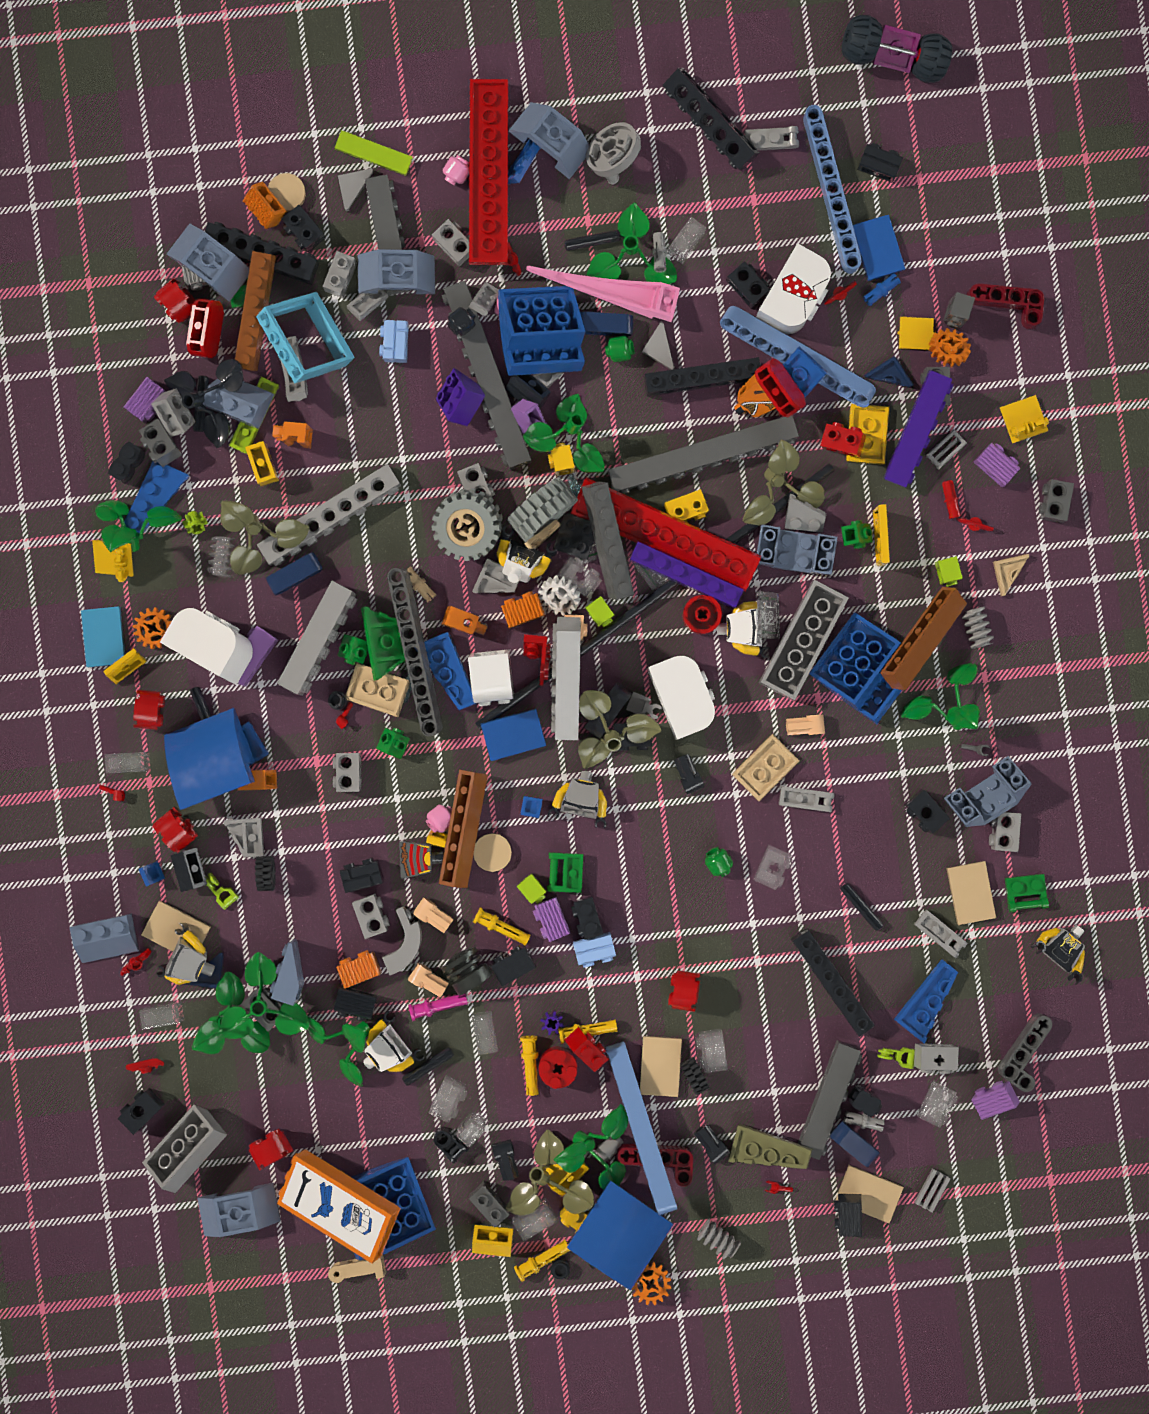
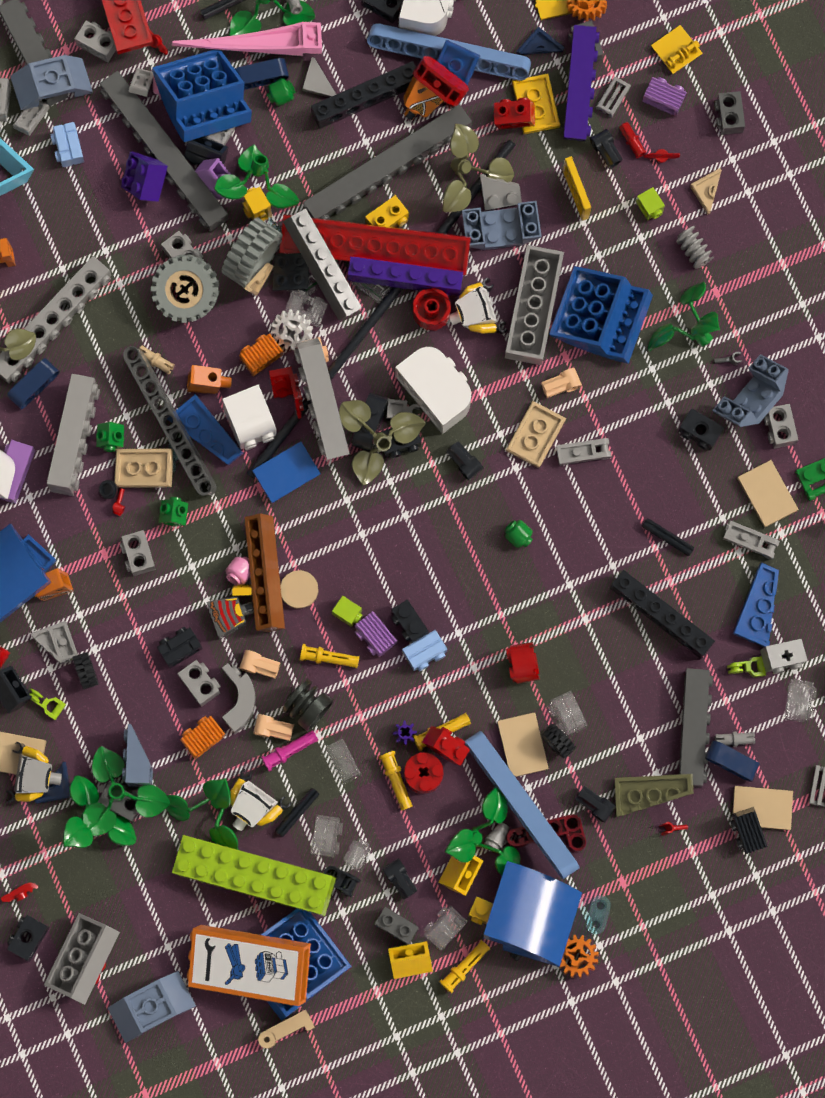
camera: 15 degrees left, 10 degrees down
(161, 1015) = (22, 838): clear brick -> none
(270, 1150) = (166, 934): red brick -> none
(355, 1003) = (208, 769): black brick -> none
(368, 1119) = (254, 875): none -> lime brick
(383, 642) = (137, 420): green wing -> none
(461, 321) = (125, 106): black head -> none
(493, 580) = (227, 333): light grey wing -> none
(512, 965) = (350, 688): black brick -> none
(521, 562) = (246, 308): torso -> none
(524, 1198) = (429, 908): olive plant -> none
(531, 807) = (323, 535): blue plate -> none
(560, 1269) = (485, 971): black plate -> none
(571, 872) = (381, 586): green plate -> none
(581, 798) = (369, 512): torso -> none
(600, 612) = (334, 335): lime brick -> none
(682, 1248) = (598, 915): none -> clear light blue plate
(718, 1239) = (630, 894): light grey piece -> none
(768, 615) = (494, 291): clear piece -> none
(771, 856) = (570, 535): clear brick -> none
(857, 534) = (554, 195): green brick -> none
(864, 1100) = (728, 715): black brick -> none
(921, 496) = (604, 144): none -> black piece
(923, 638) = (645, 268): dark orange brick -> none

